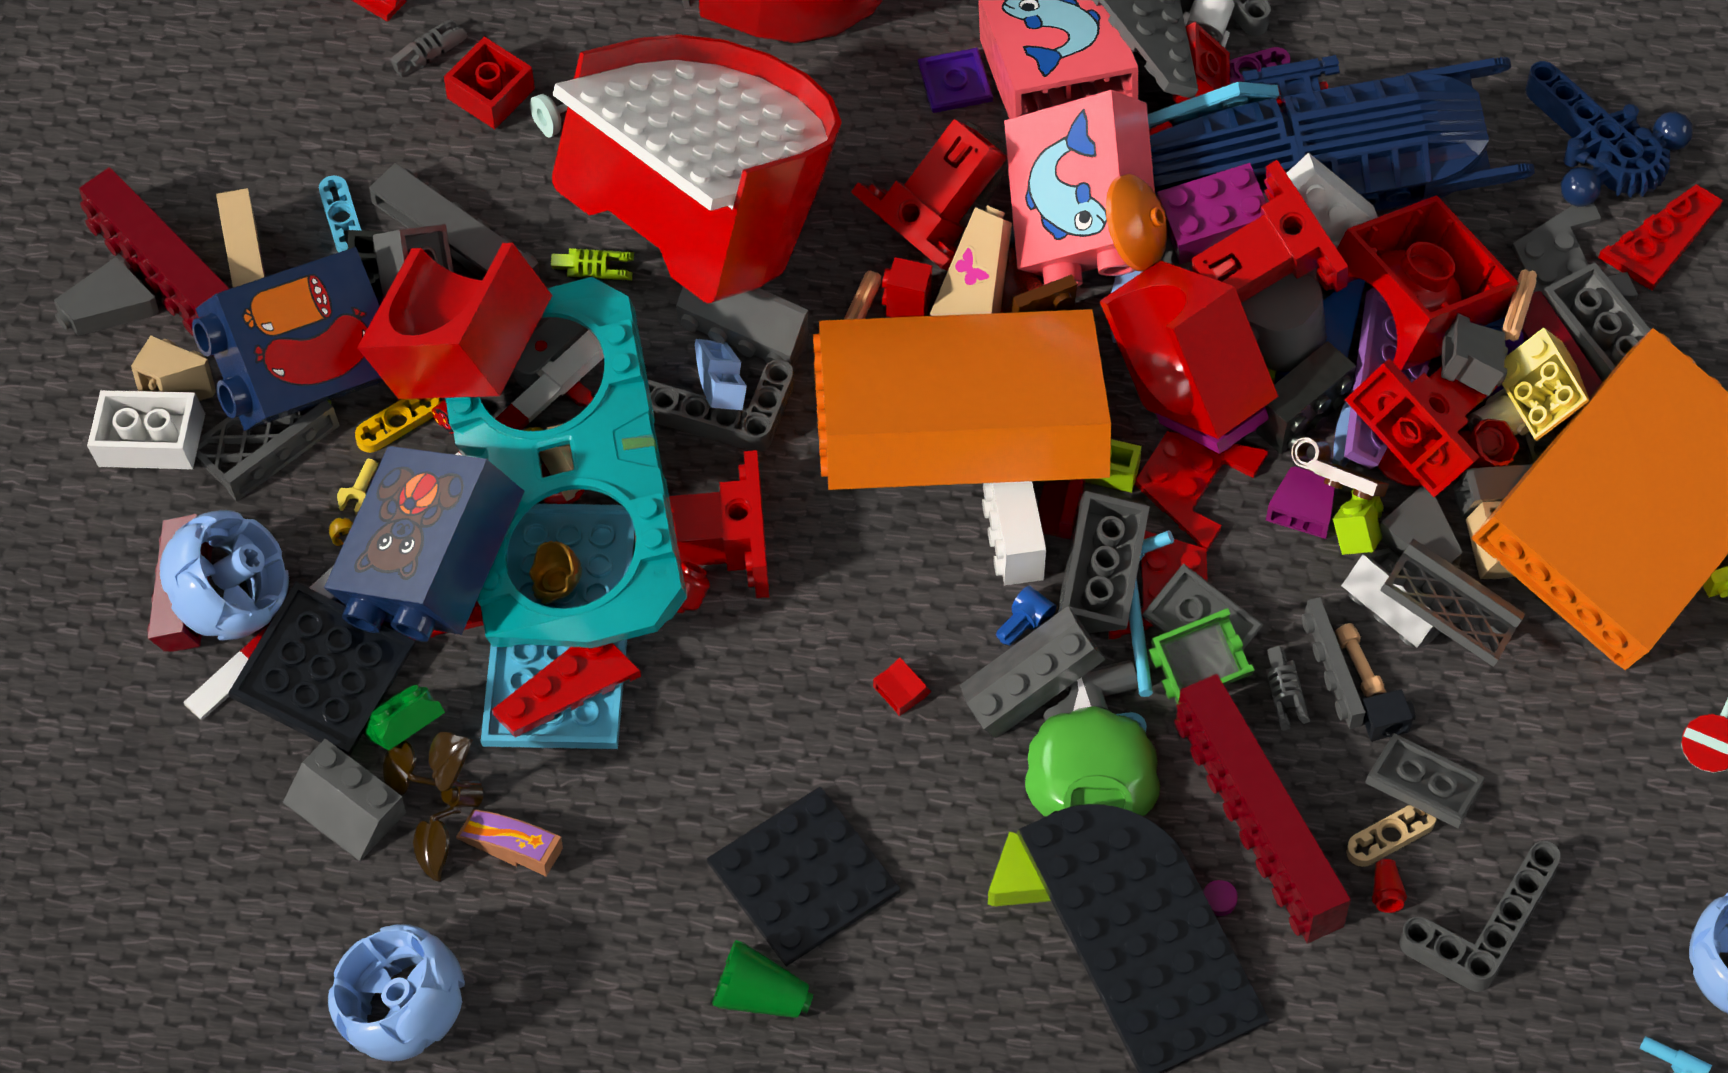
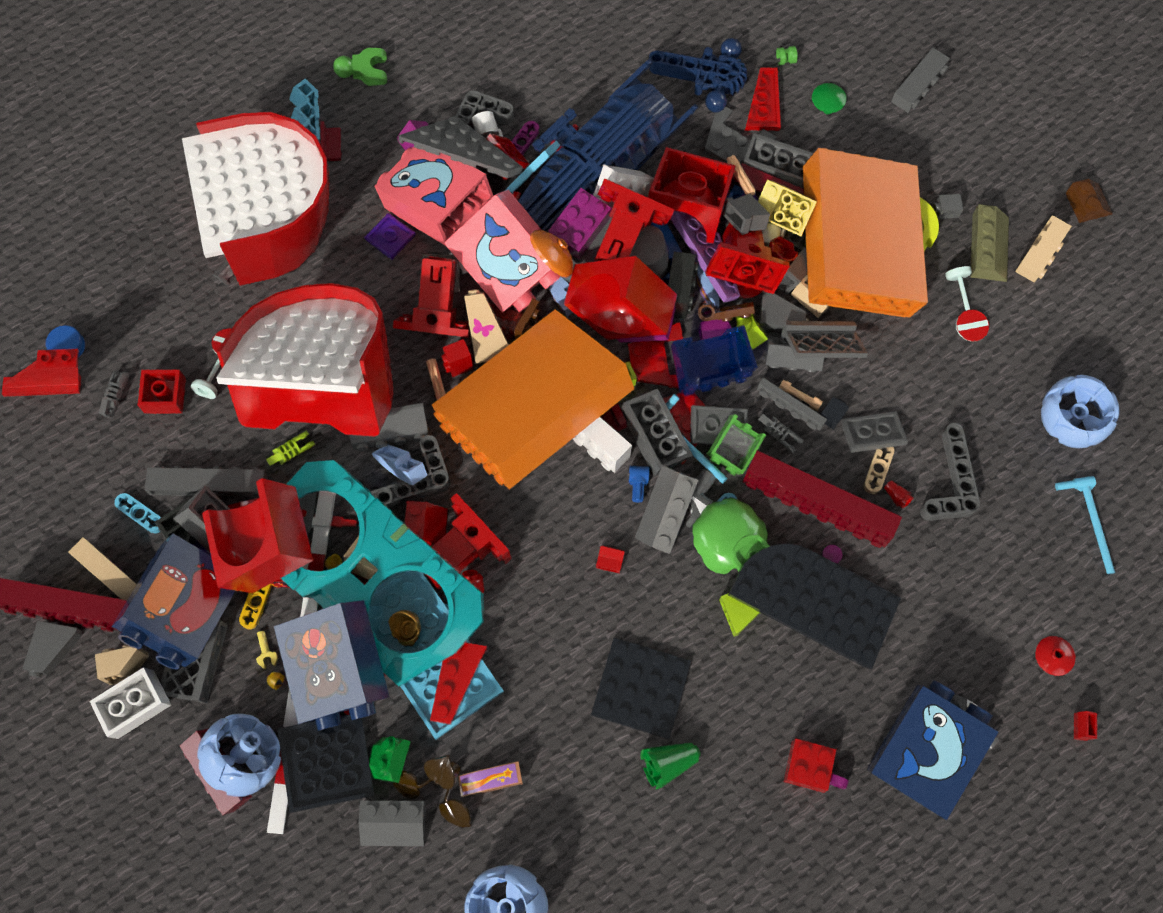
camera: 40 degrees left, 10 degrees up
(693, 464) = (426, 520): none -> red slope
(1259, 524) = (713, 361): none -> clear blue windscreen

